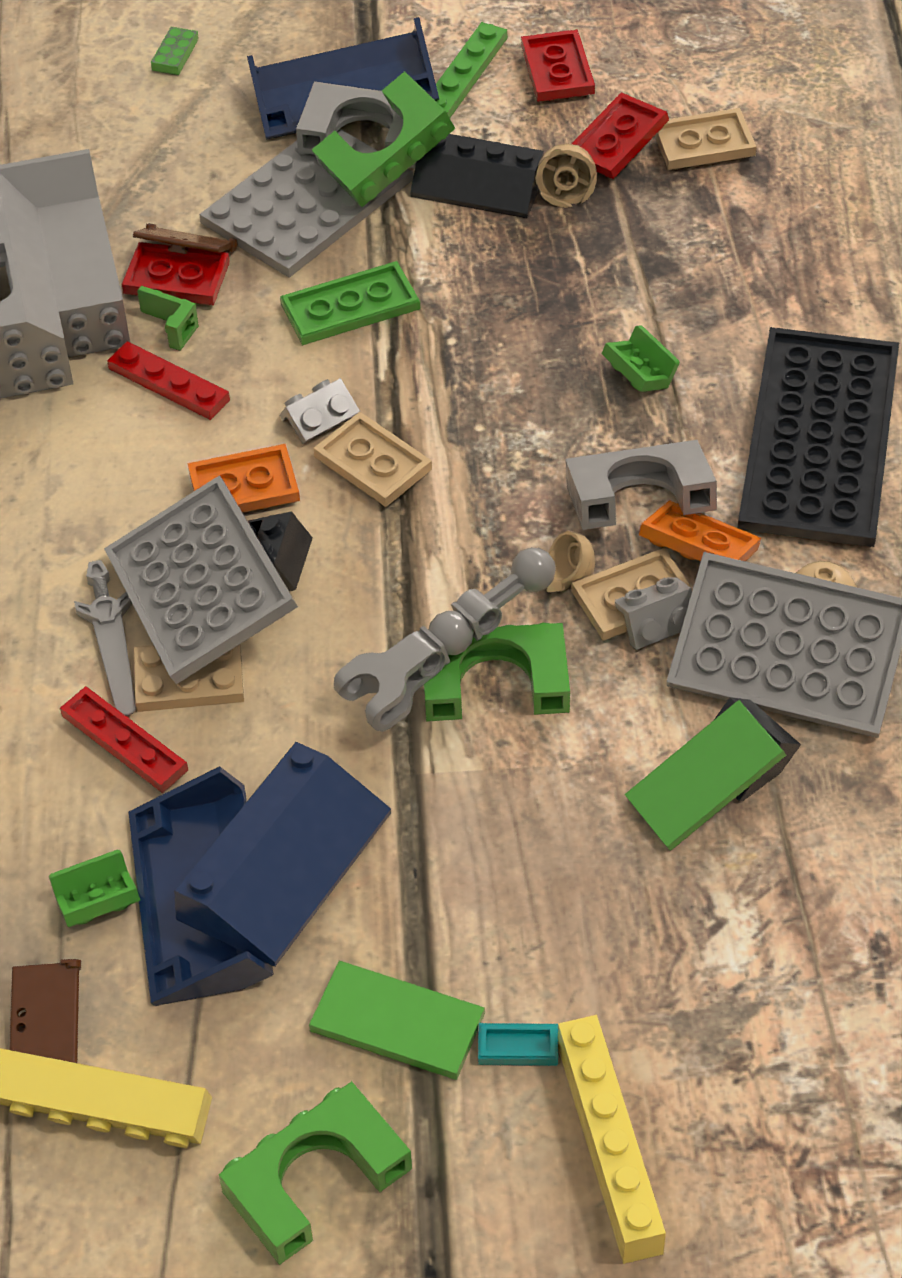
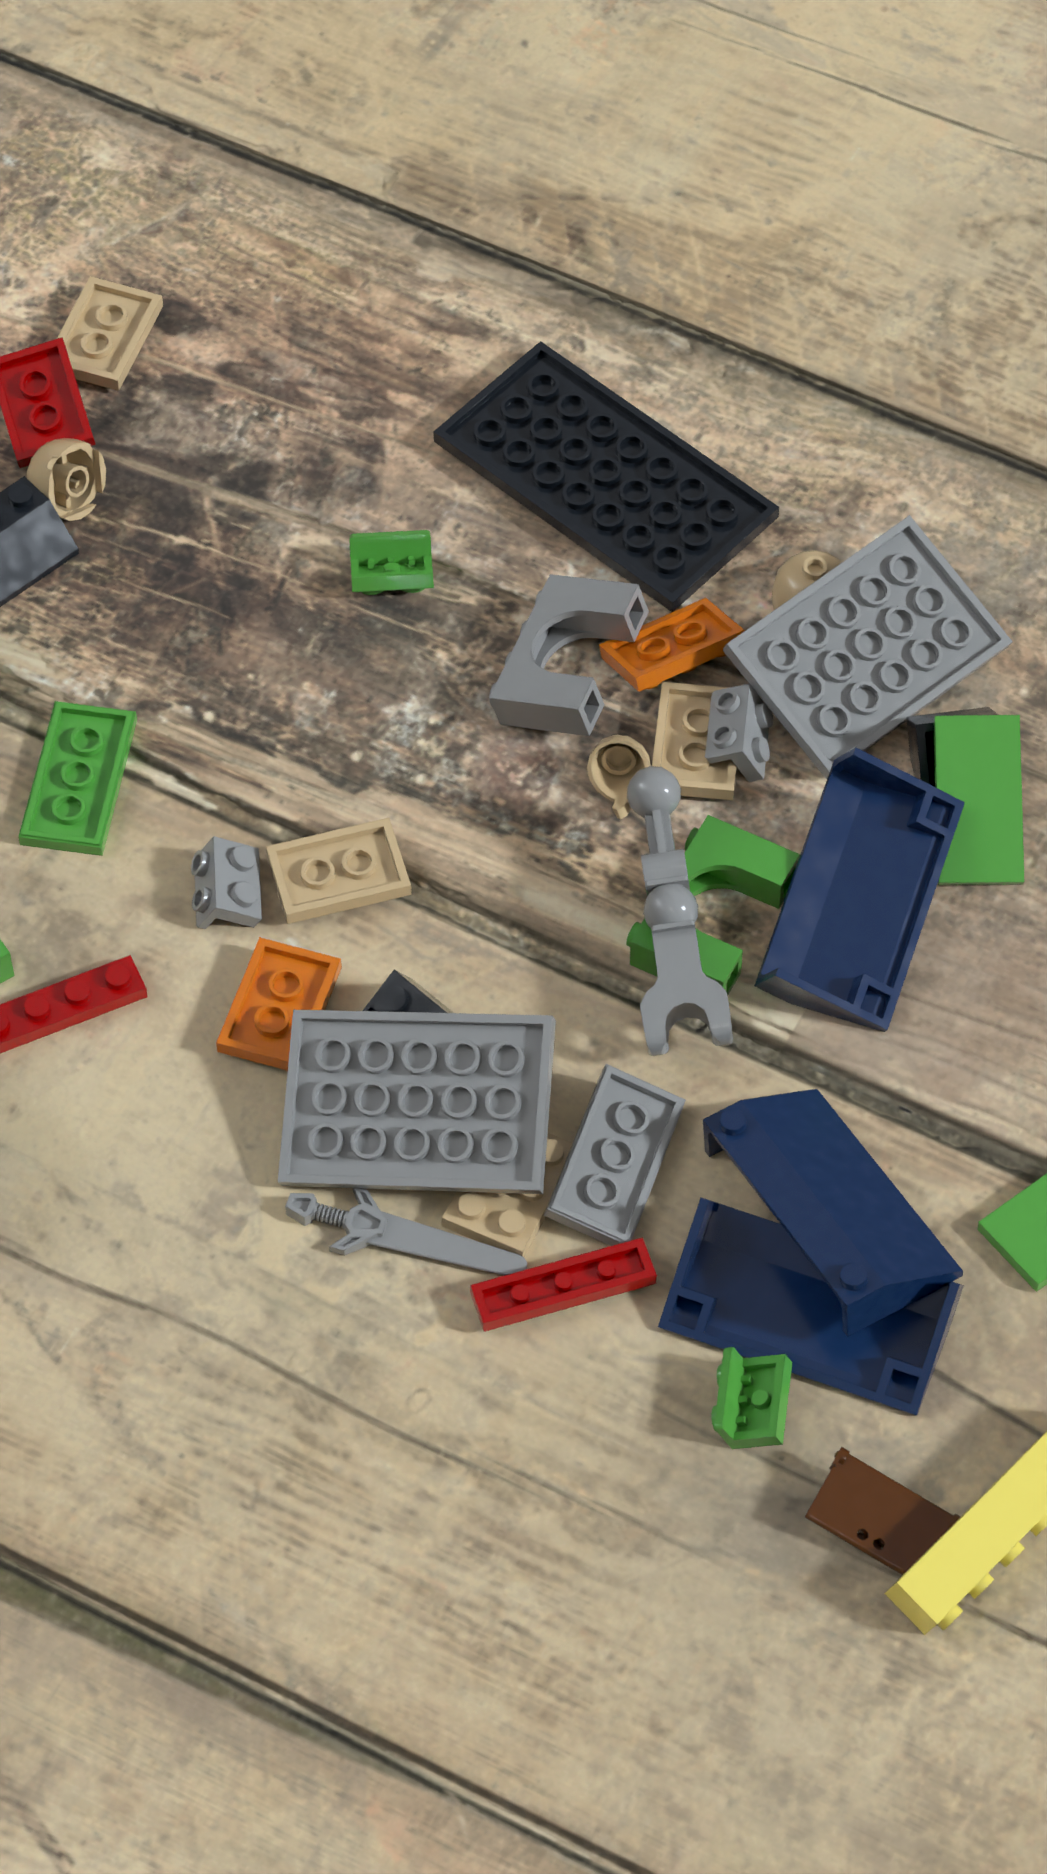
camera: 60 degrees left, 5 degrees up
(246, 717) = (615, 1157): none -> light grey tile
(565, 744) = (860, 892): none -> dark blue slope

